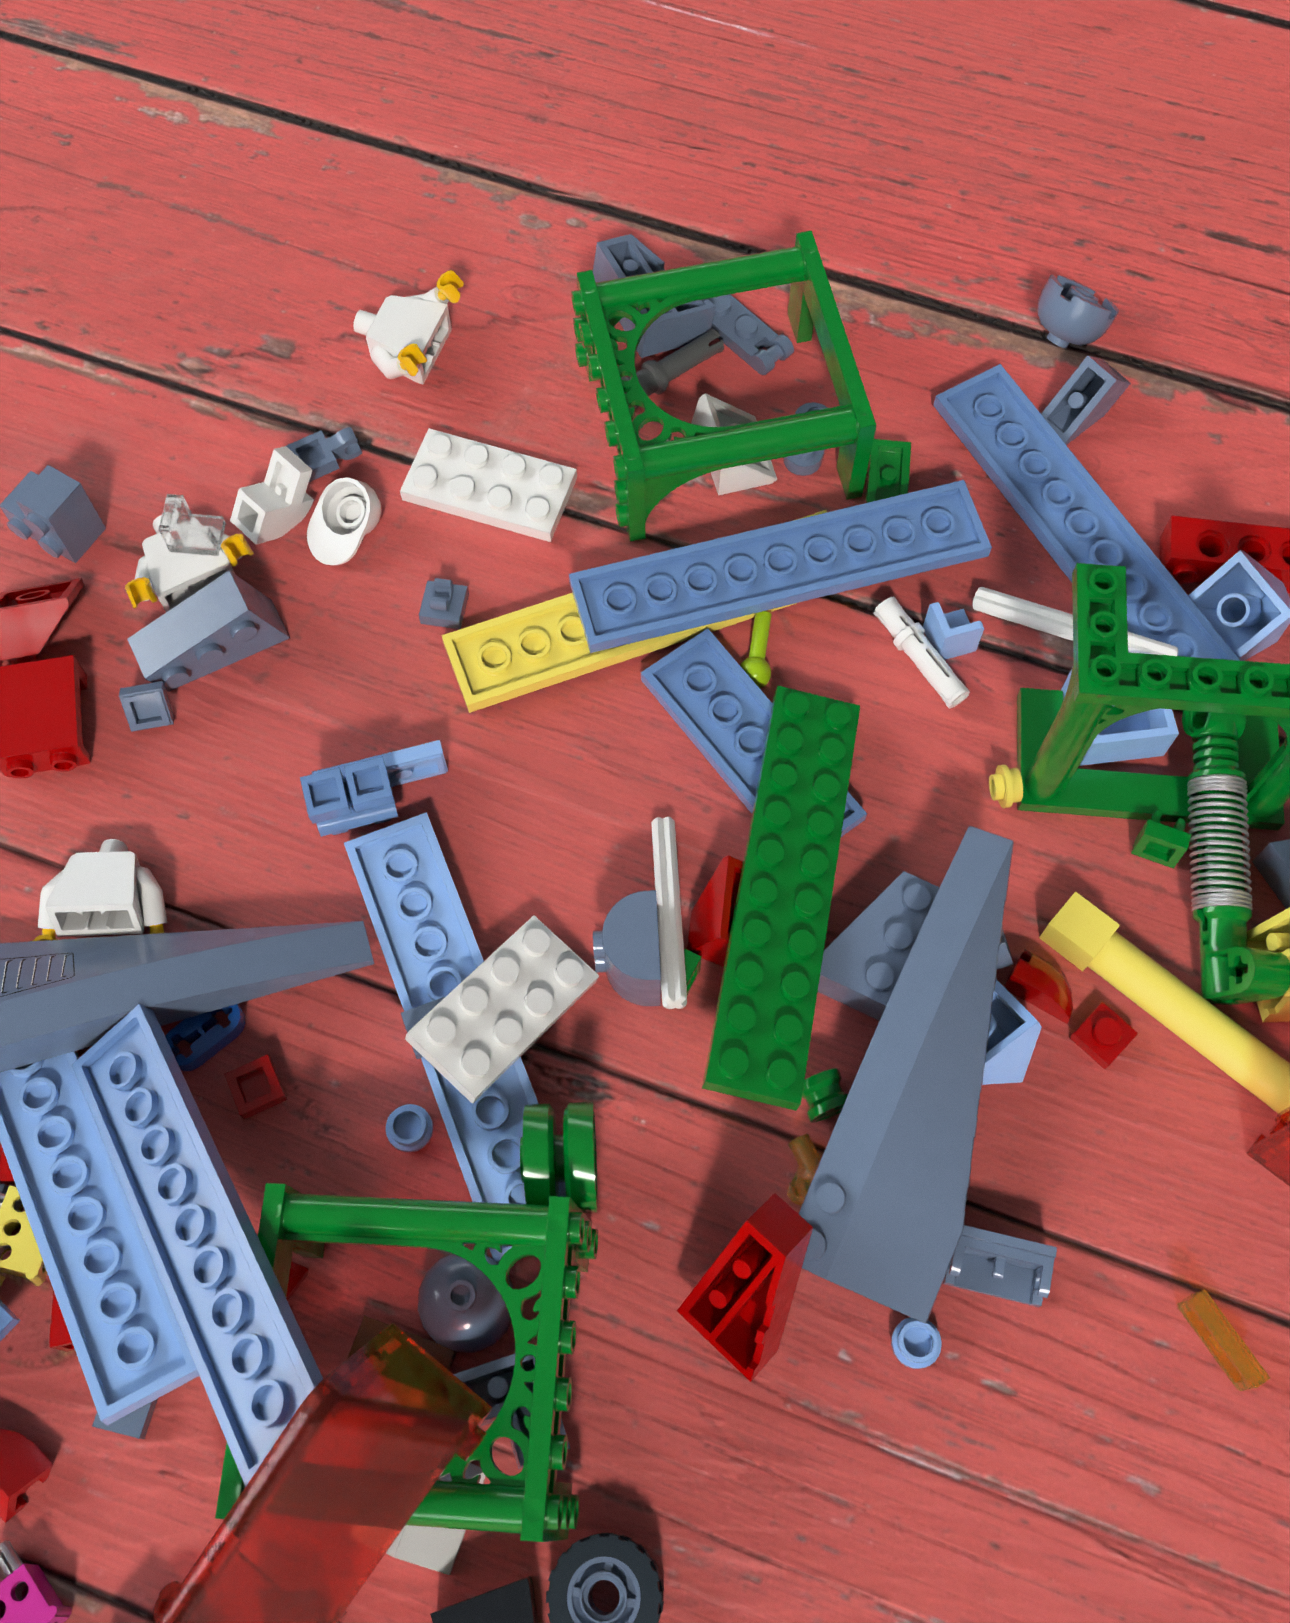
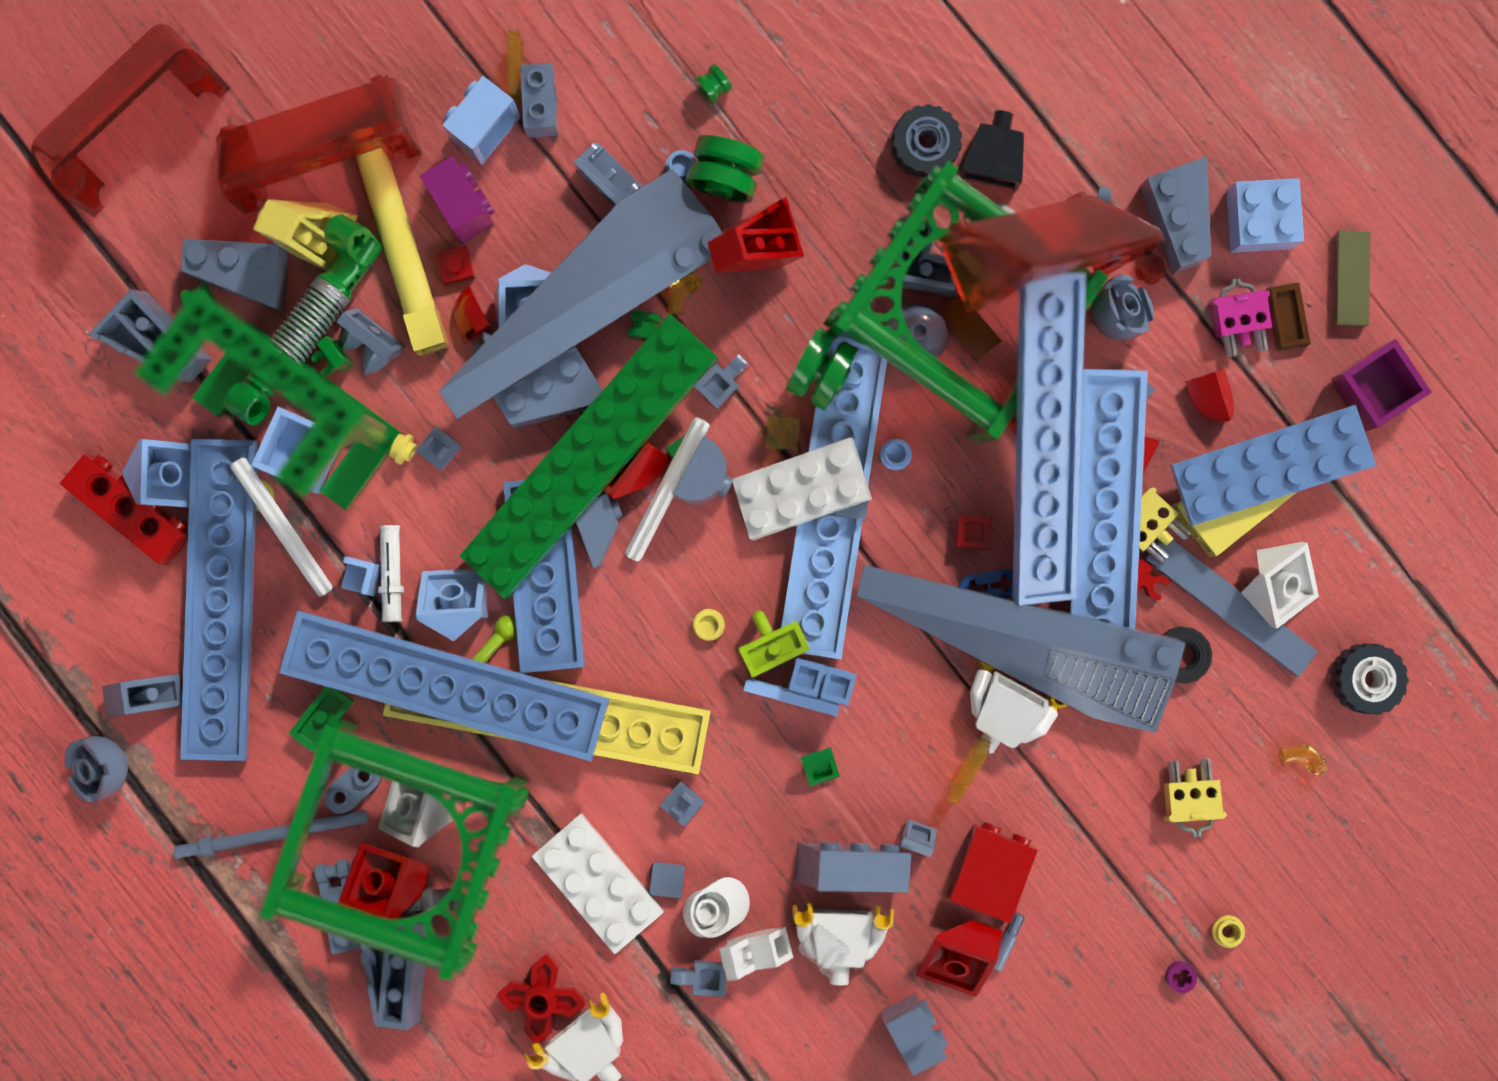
camera: 155 degrees left, 20 degrees up
(119, 802) = (968, 770): none -> clear yellow tile
(180, 1508) = (1122, 309): none -> sand blue cylinder
(305, 719) = (820, 766): none -> green plate
(415, 525) = (667, 879): none -> sand blue tile
(433, 804) = (773, 646): none -> lime plate
(480, 352) = (523, 996): none -> red plant
(526, 801) = (708, 624): none -> light yellow tile
(569, 1067) = (782, 433): none -> clear yellow plate
(682, 1084) = (719, 384): none -> sand blue plate
(711, 358) = (383, 882): none -> red slope
(720, 822) = (599, 527): none -> sand blue slope
(835, 655) = (451, 601): none -> light blue slope
(852, 1353) = (725, 168): none -> green wheel
(909, 315) = (210, 845): none -> sand blue bar
(951, 1488) = (713, 84): none -> green wheel
(965, 809) = (438, 448): none -> sand blue tile
(1137, 889) = (380, 345): none -> sand blue tile
(1159, 1311) = (539, 100): none -> sand blue brick
(1163, 1106) = (454, 194): none -> magenta piece
(1212, 1228) = (481, 119): none -> light blue piece

